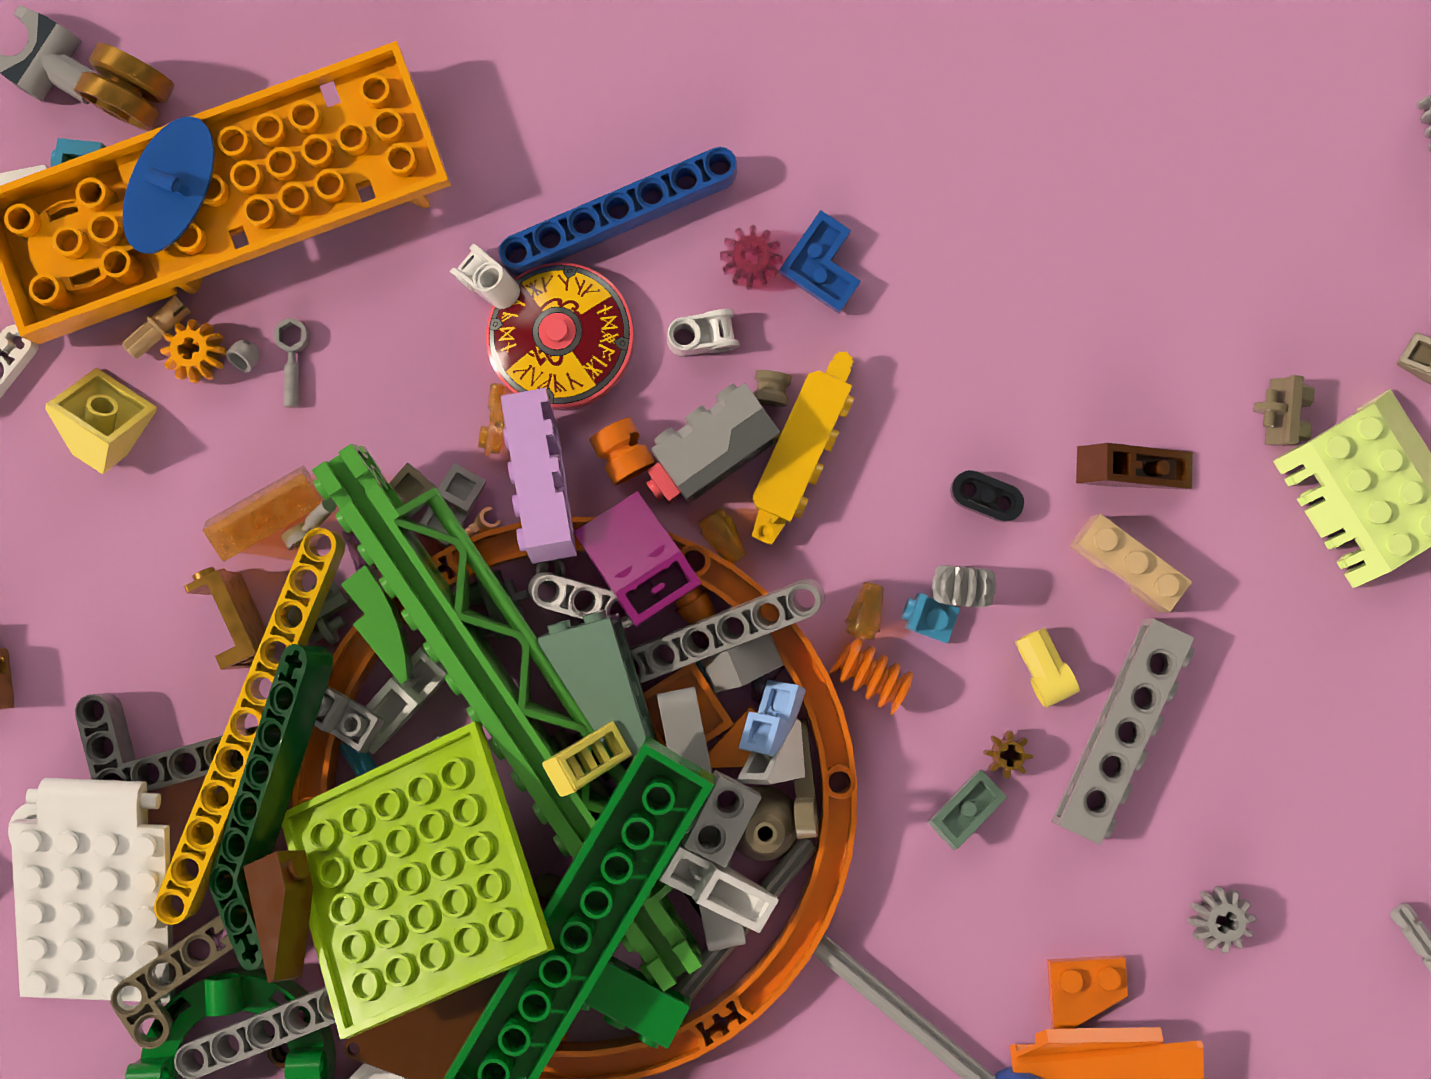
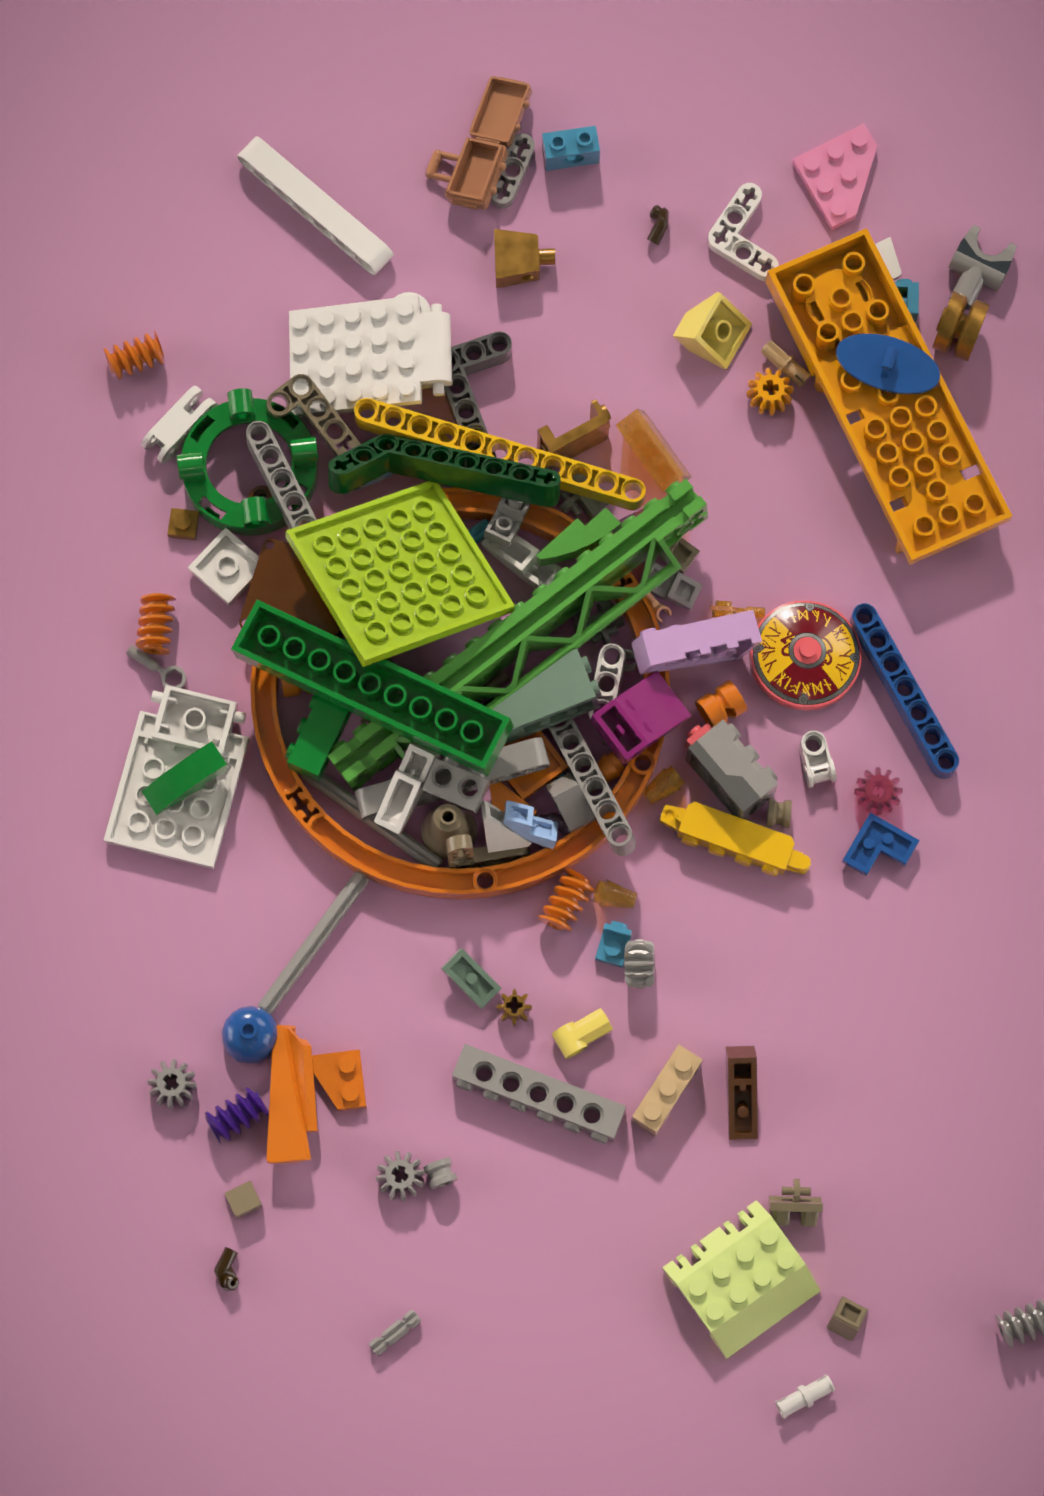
camera: 80 degrees right, 10 degrees down
(243, 355) = (770, 427): light grey hinge -> none
(281, 907) = (370, 485): reddish brown slope -> none
(291, 369) = (759, 463): light grey piece -> none
(295, 535) = (638, 473): light grey piece -> none
(487, 278) = (843, 597): white piece -> none
(566, 772) = (483, 672): light yellow slope -> none
(986, 494) = (710, 981): black plate -> none
(1221, 866) = (440, 1173): none -> light grey wheel

